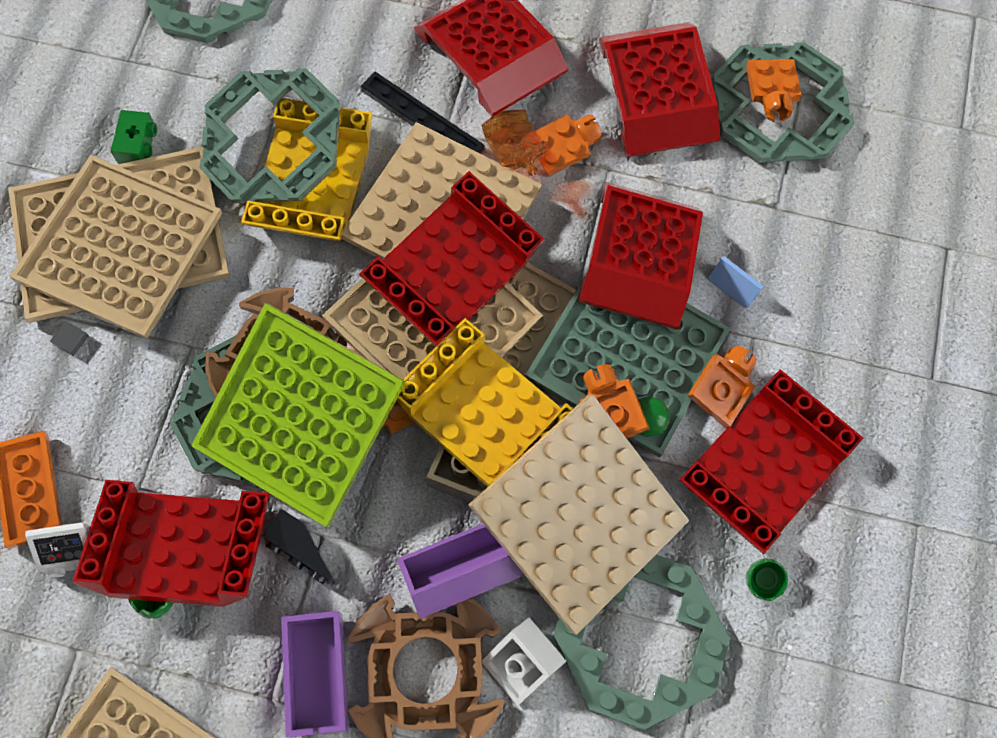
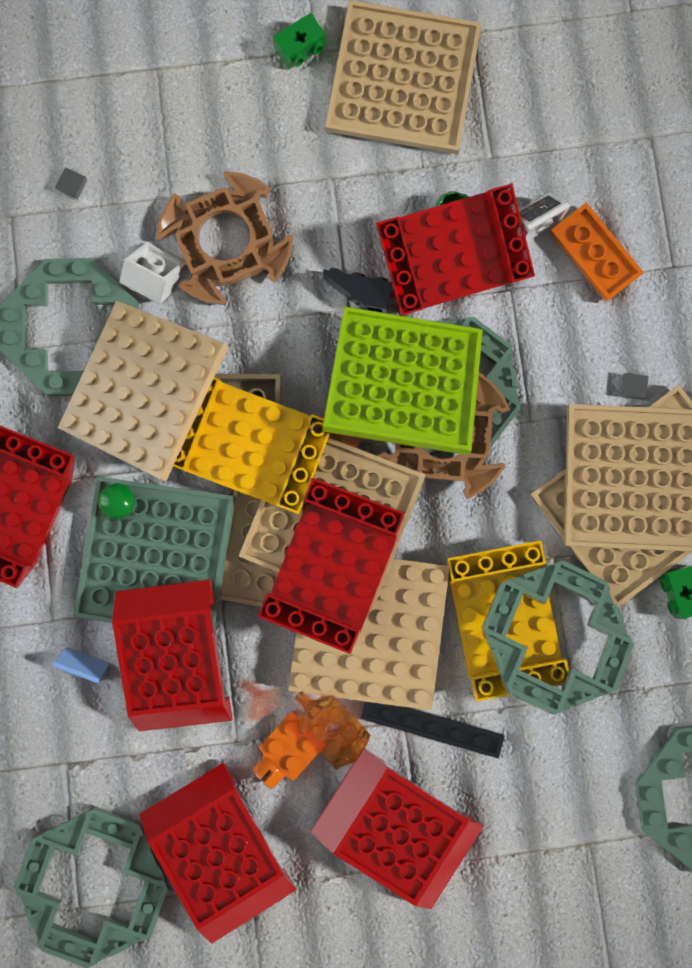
camera: 160 degrees right, 15 degrees up
(314, 674) = (304, 200): medium lavender piece -> none
(456, 570) = (232, 309): medium lavender piece -> none
(617, 400) = (148, 495): orange plate -> none
(725, 385) = (62, 560): orange plate -> none
(774, 85) = (101, 896): orange plate -> none

